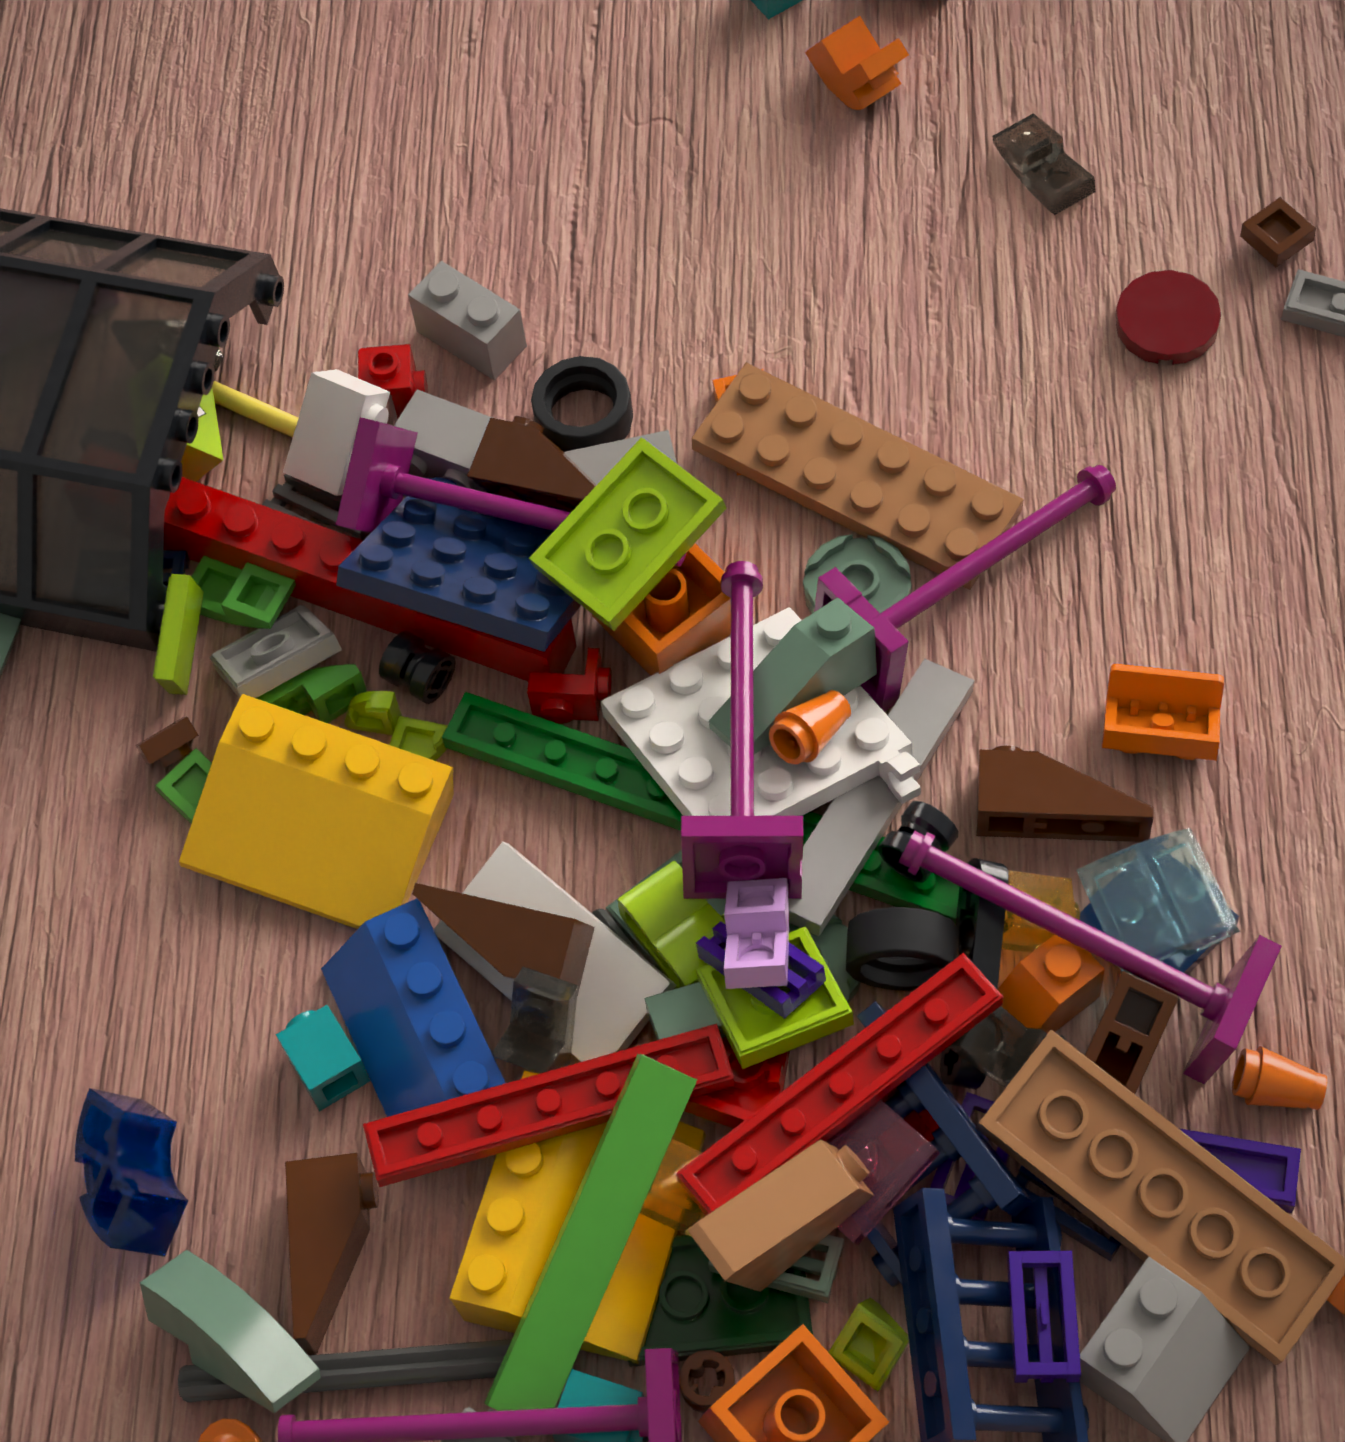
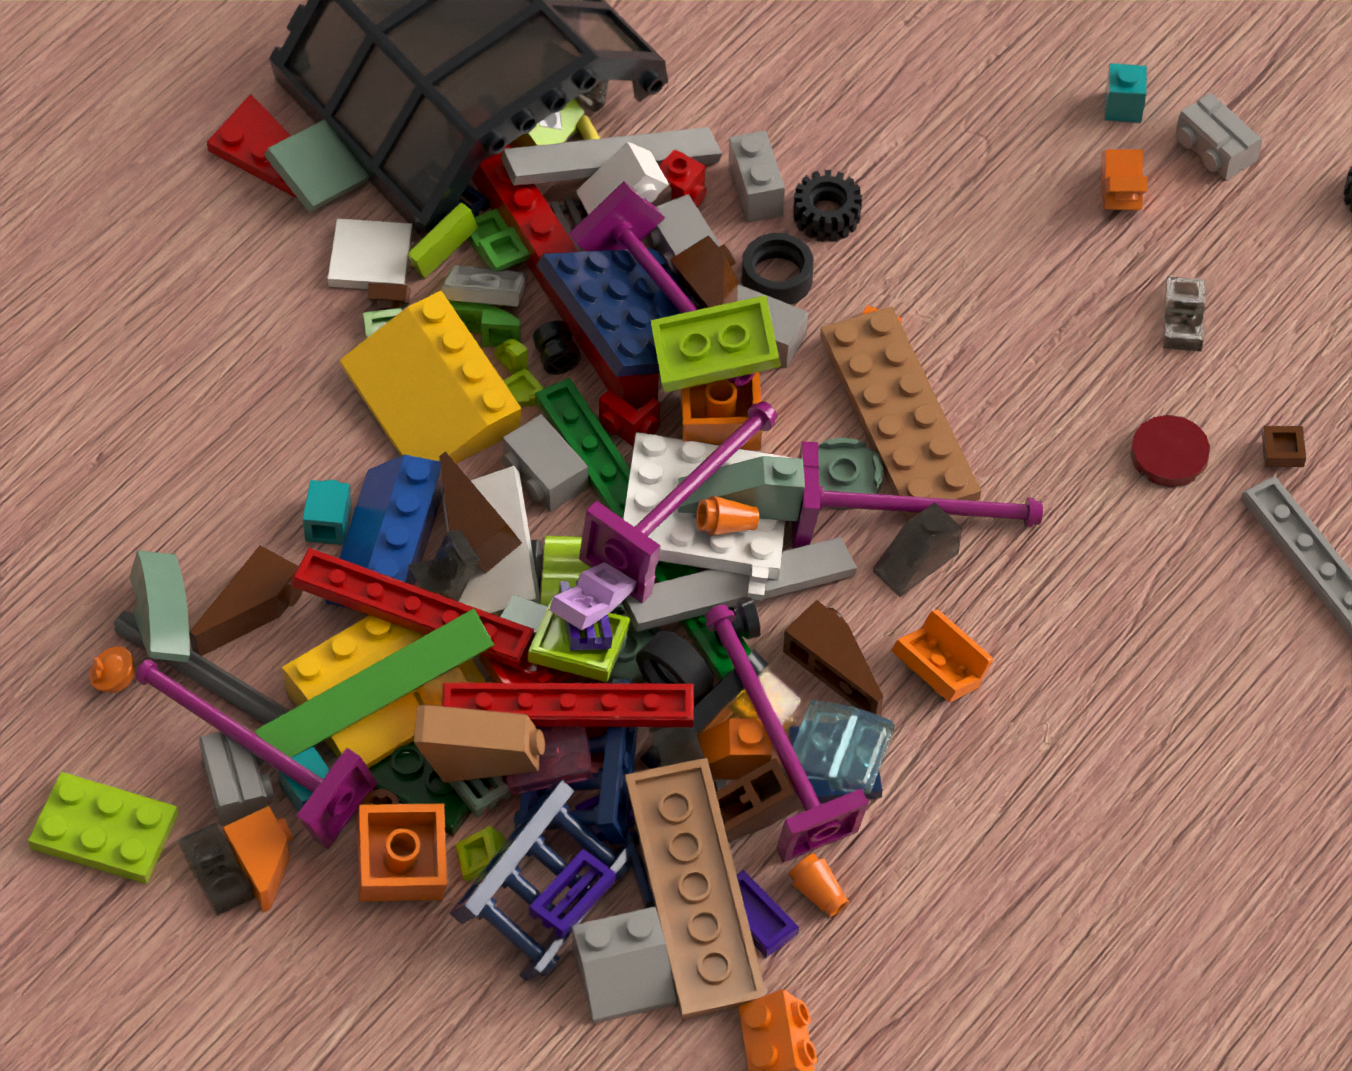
camera: 30 degrees right, 5 degrees down
(100, 710) = (369, 253): none -> white tile
(128, 1172) = (179, 495): clear blue brick -> none
(270, 421) = (585, 157): none -> light grey tile
(526, 808) = (545, 463): none -> light grey brick
(566, 278) = (827, 222): none -> black tyre
(1023, 612) = (919, 549): none -> clear smoke slope

